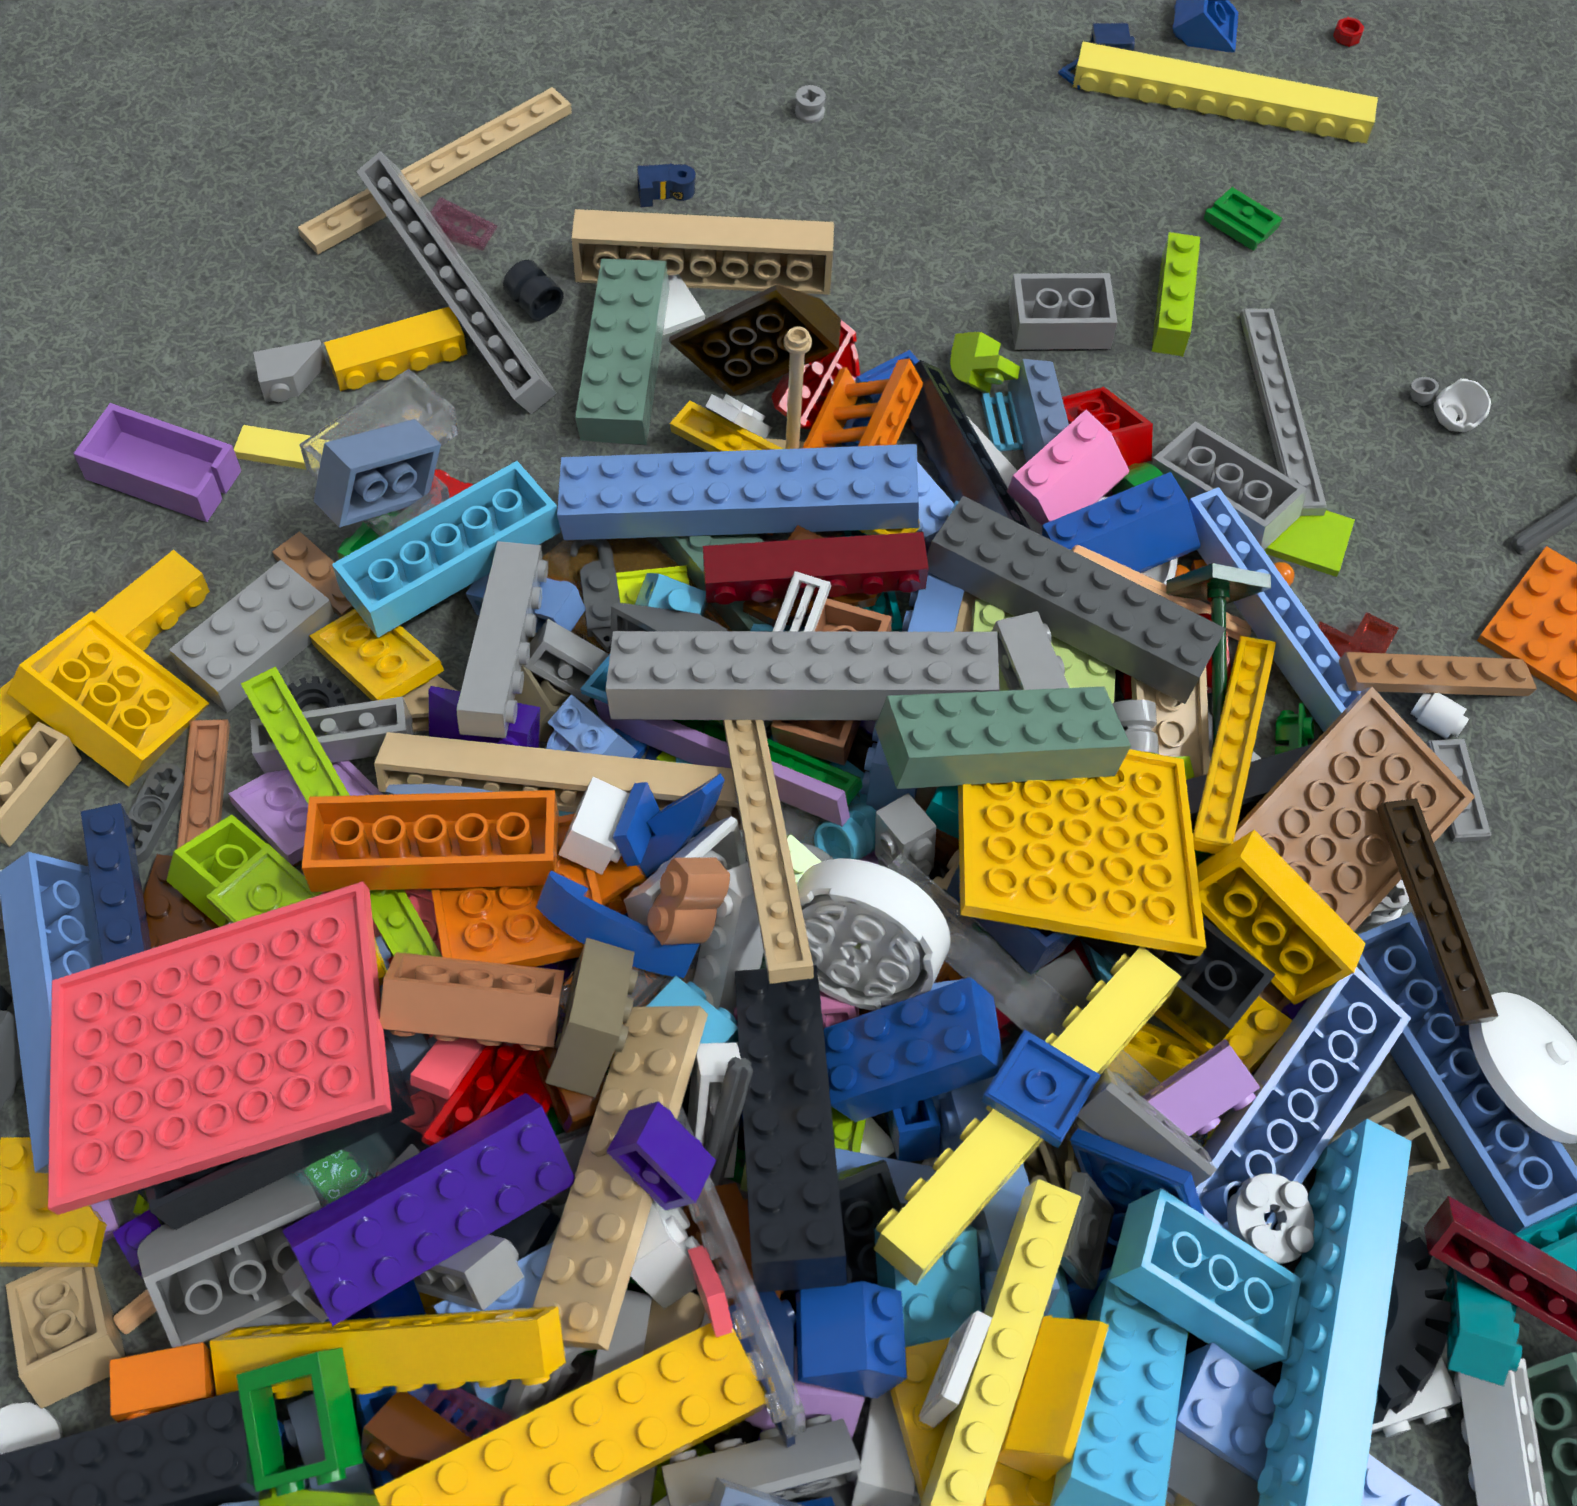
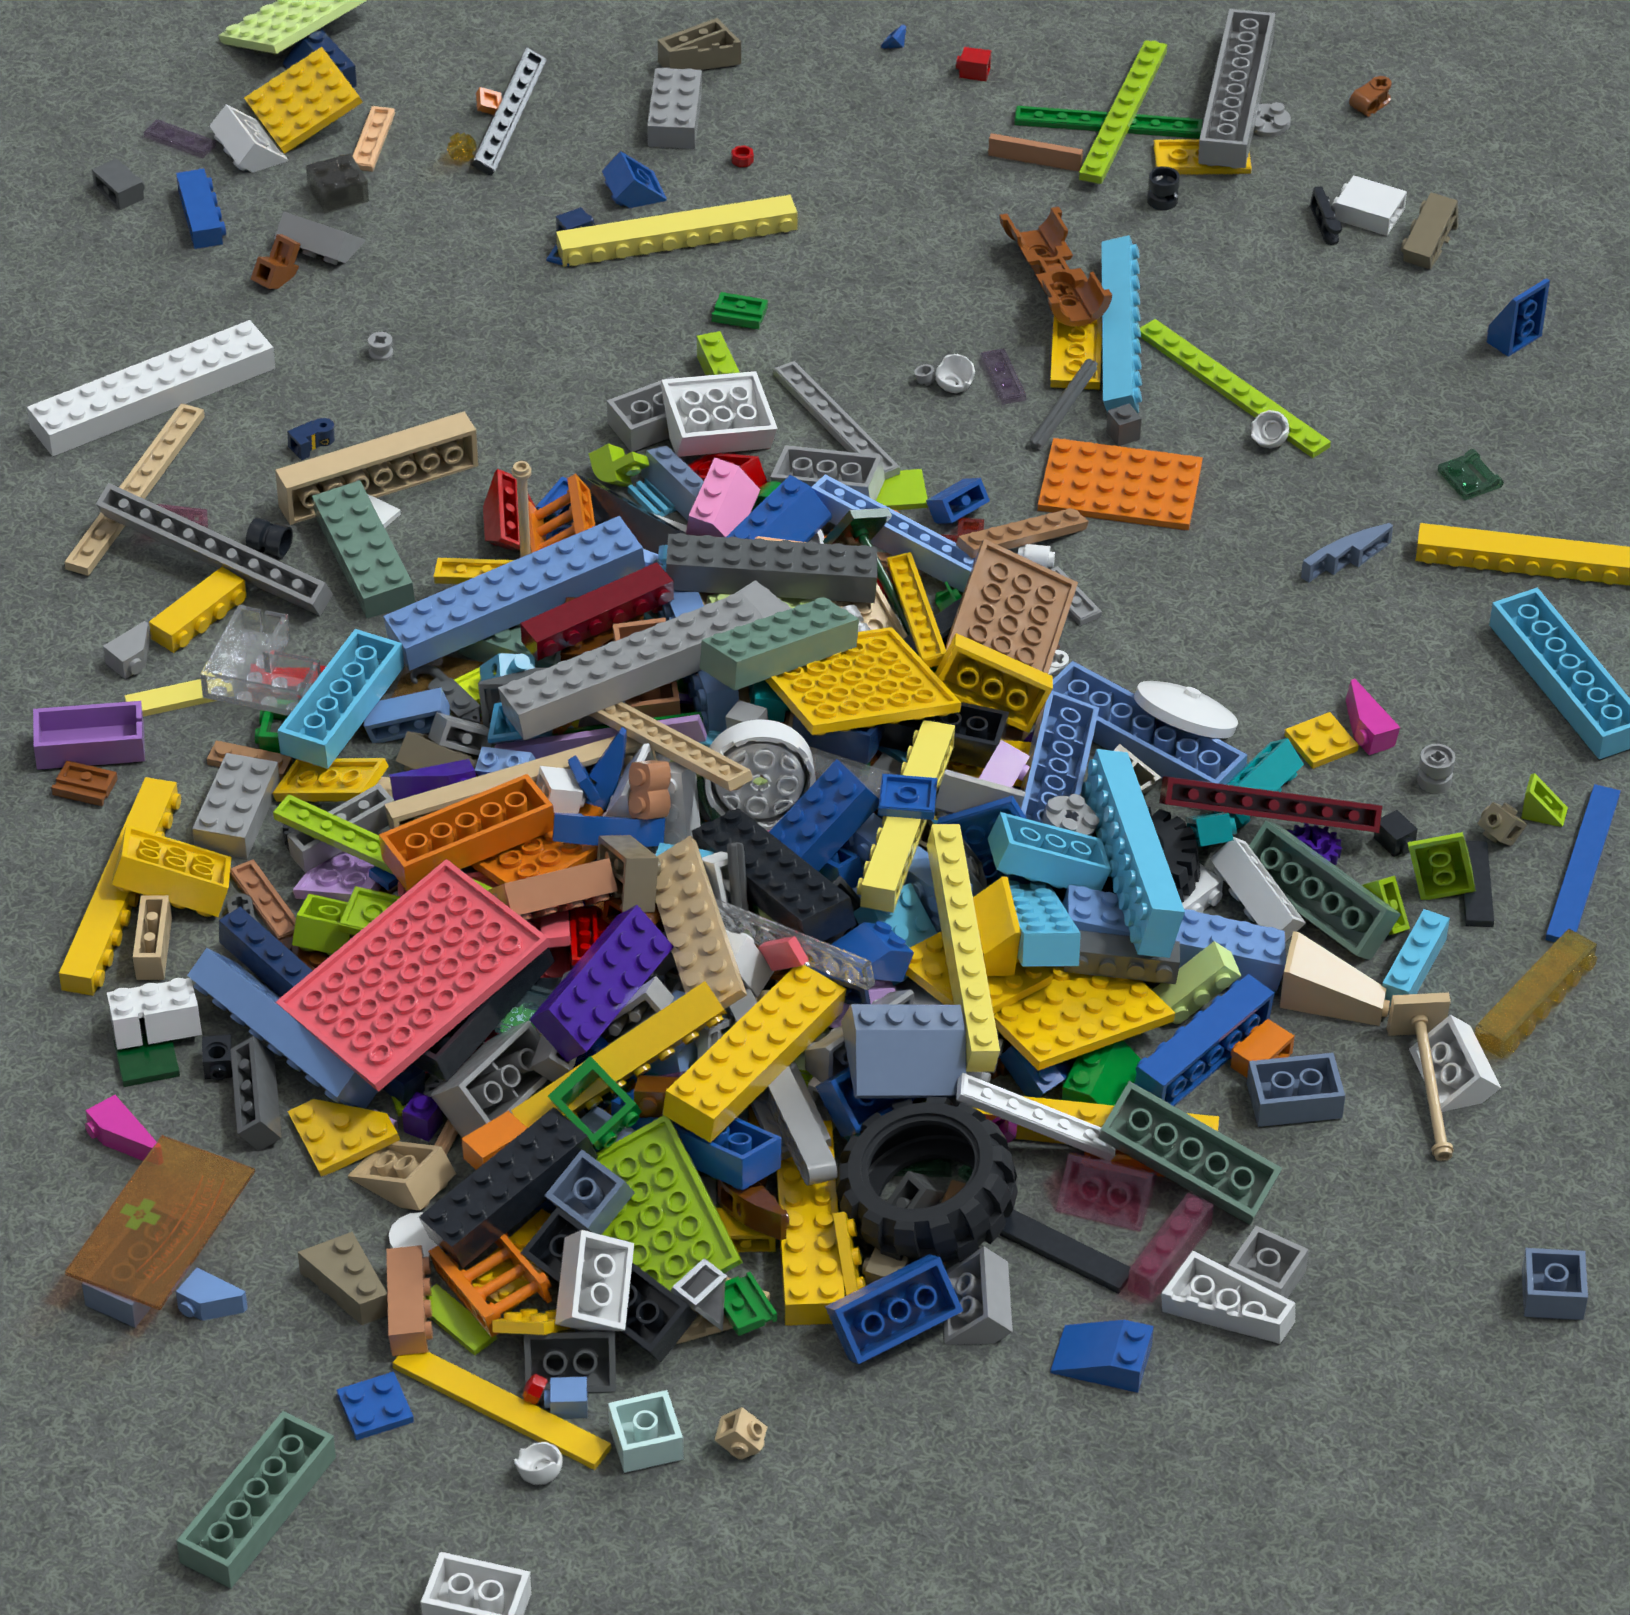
camera: 25 degrees left, 15 degrees down
(117, 522) = (84, 783): none -> dark orange plate
(376, 472) = (277, 661): sand blue brick -> none
(501, 640) = (421, 727): light grey brick -> none
(532, 56) = (151, 387): none -> white brick
(661, 1156) = (719, 898): dark purple brick -> none
(739, 414) = (471, 549): white wing -> none
(746, 341) = (465, 501): dark brown slope -> none
(812, 582) = (605, 613): white tile -> none
(955, 1369) = (937, 932): white tile -> none
(1136, 344) = (717, 414): none -> white slope
(1377, 587) = (957, 500): none -> blue brick
(1437, 913) = (1084, 646): dark brown tile -> none
(1522, 432) = (1003, 376): none -> clear purple tile

